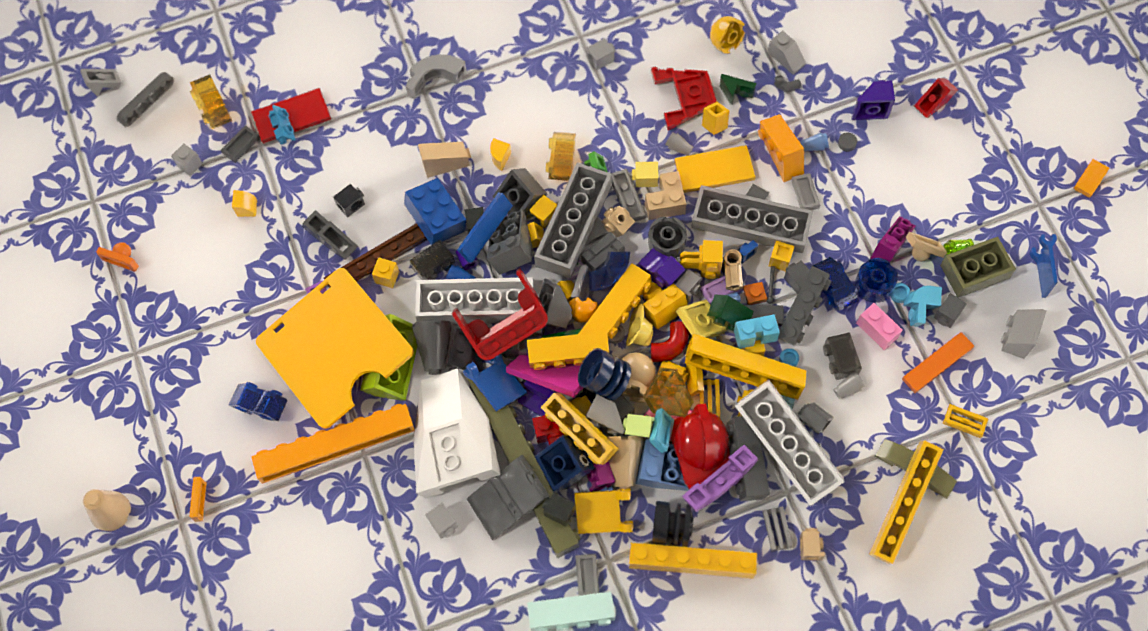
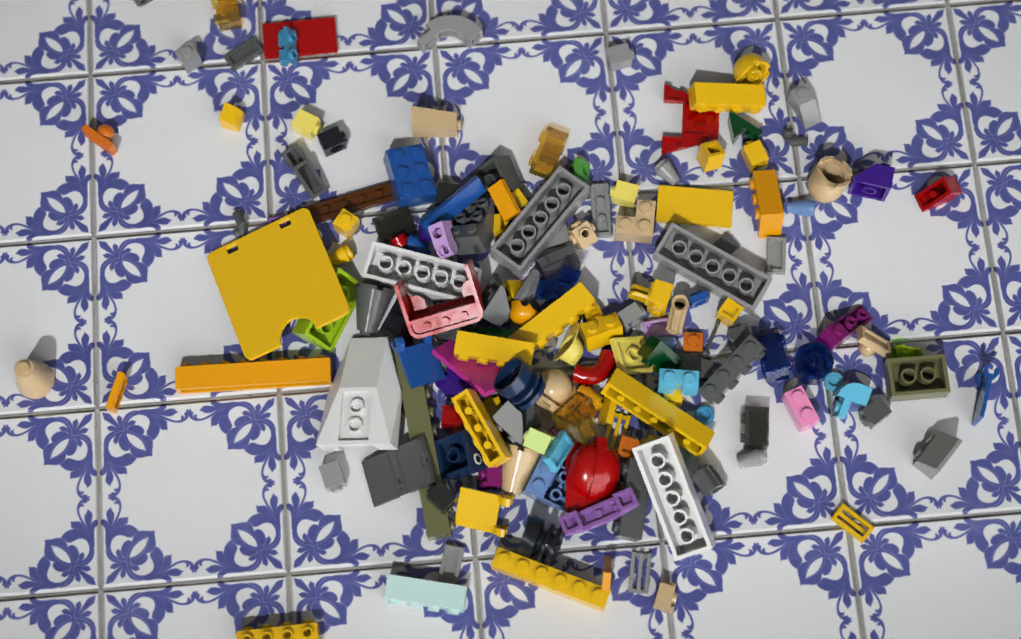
camera: 15 degrees right, 5 degrees up
(263, 403) = (199, 319): clear blue brick -> none
(281, 301) = (241, 223): none -> dark grey arm
(320, 191) = (306, 124): none -> light yellow brick
(389, 303) = (341, 255): none -> yellow cone
(442, 273) = (399, 240): none -> red plate
(485, 258) = (443, 239): none -> lavender leg
(500, 153) = (490, 133): yellow brick -> none
(533, 208) = (504, 200): none -> light orange tile
(662, 268) = (607, 293): dark purple brick -> none
(667, 236) = (620, 274): dark grey brick -> none
(713, 62) = (726, 97): none -> yellow brick
(726, 408) = (625, 446): none -> orange plate
(747, 538) = (606, 573): none -> light orange tile
(755, 107) = (754, 155): none -> yellow brick
(833, 109) = (829, 179): none -> tan tile
(847, 142) = (834, 214): dark grey tile -> none
(900, 456) = (790, 553): olive slope -> none
(906, 502) = (765, 583): yellow brick -> none
(938, 362) = (846, 459): orange tile -> none

